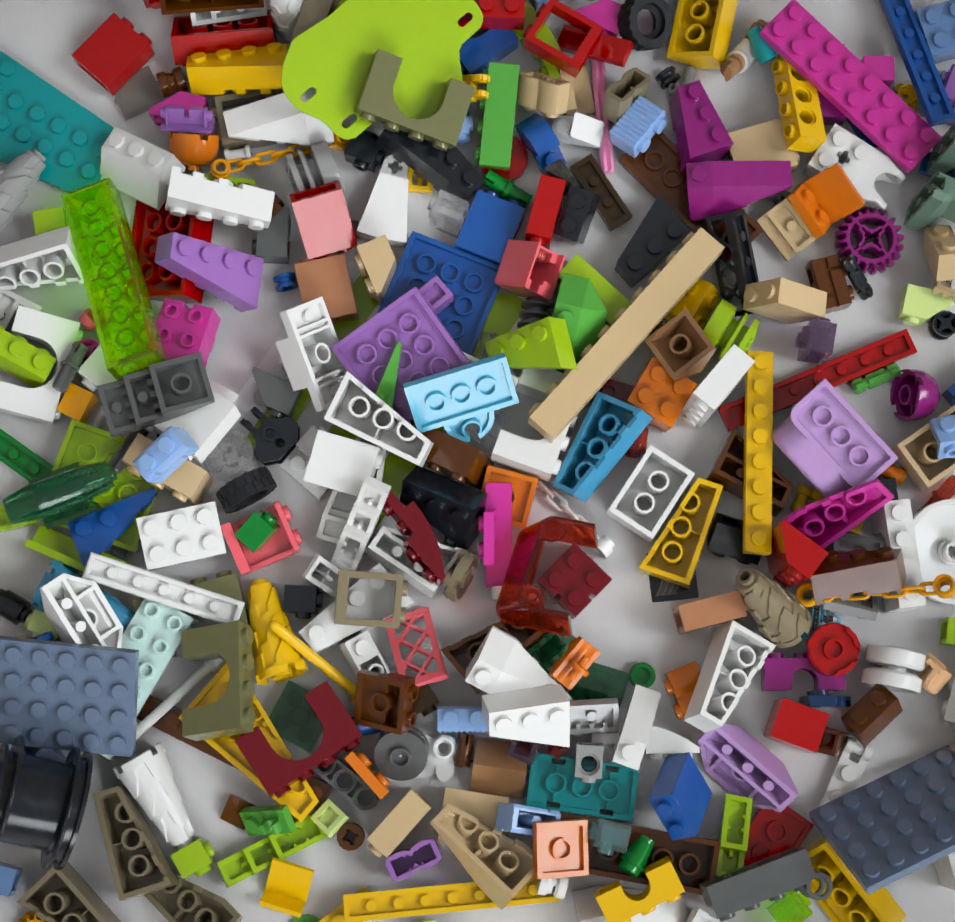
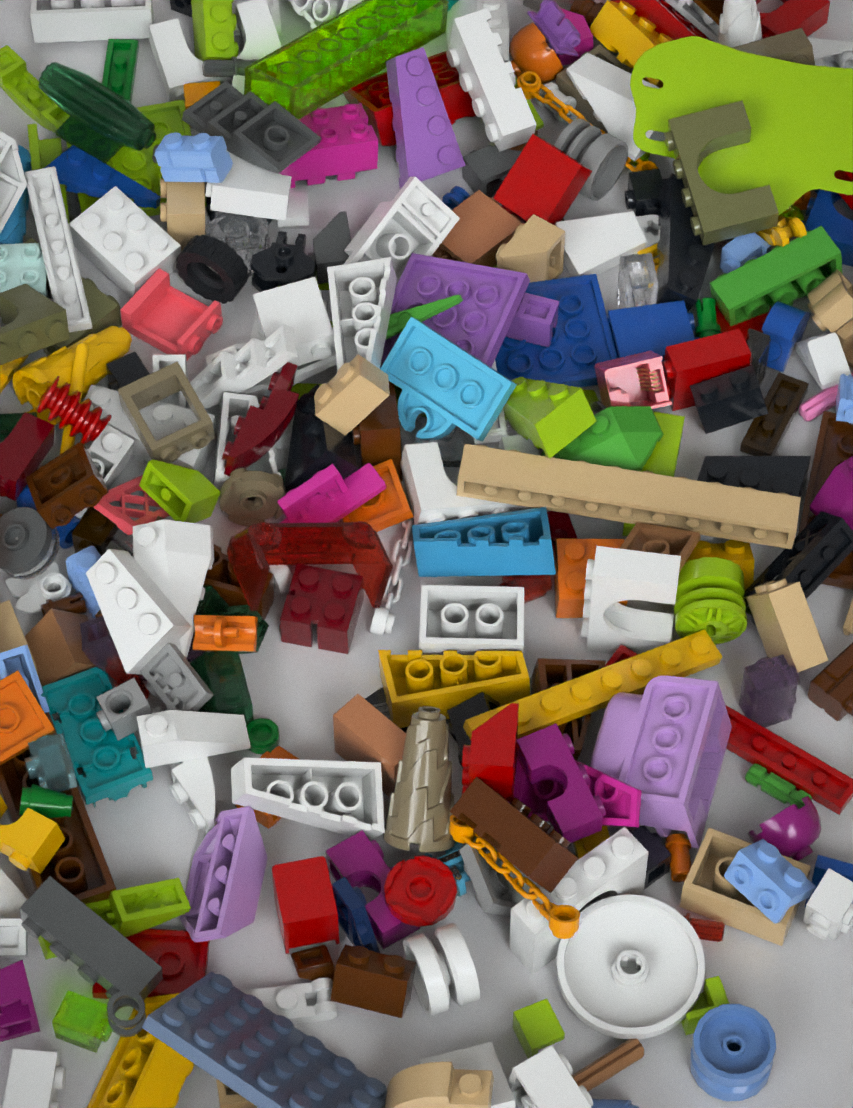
camera: 60 degrees right, 25 degrees down
(258, 530) = (176, 302): green brick -> none
(327, 662) = (72, 412): none -> red piece
(431, 623) = (180, 491): none -> lime slope
(439, 466) = (351, 394): none -> tan brick
(680, 796) = (142, 816): blue brick -> none
(861, 526) = (549, 756): none -> magenta arch
(934, 675) = (467, 1023): light nougat piece -> none

